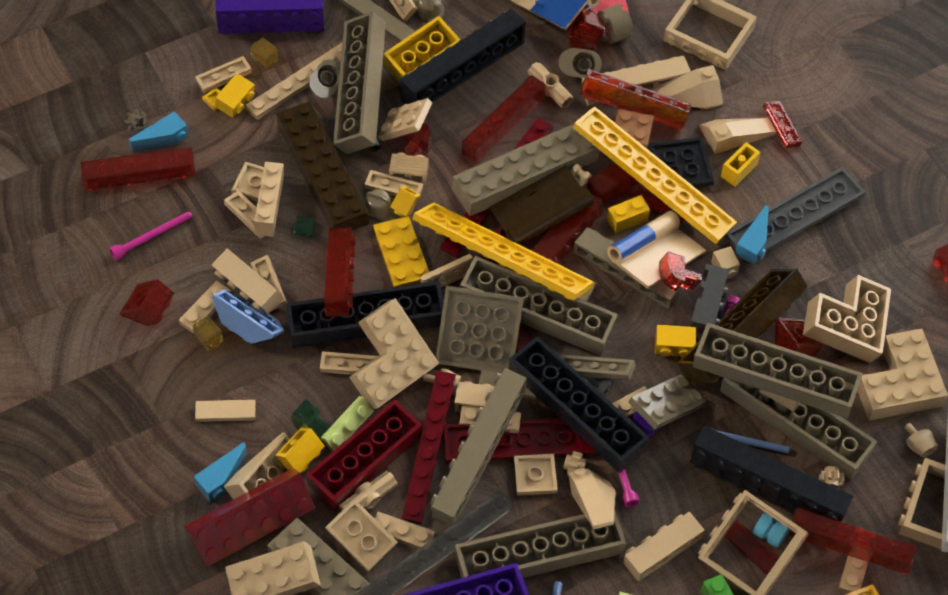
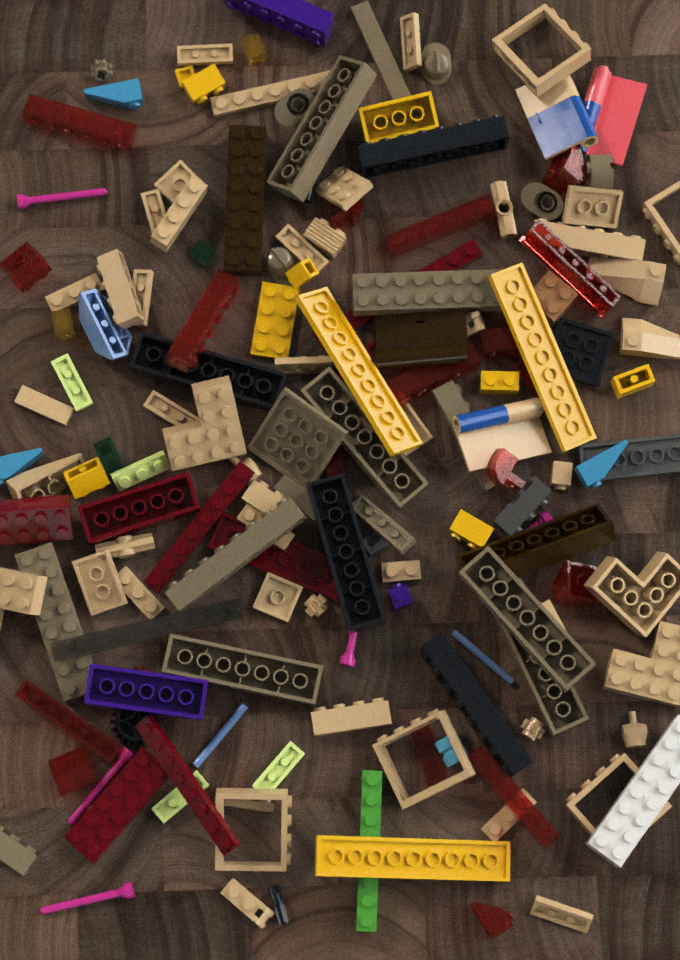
camera: 25 degrees right, 20 degrees up
(242, 379) = (72, 382): none -> yellowish green plate
(594, 497) = (314, 647): tan wedge -> none
(624, 49) = (592, 206): none -> tan plate
(667, 402) = (427, 589): dark tan plate -> none

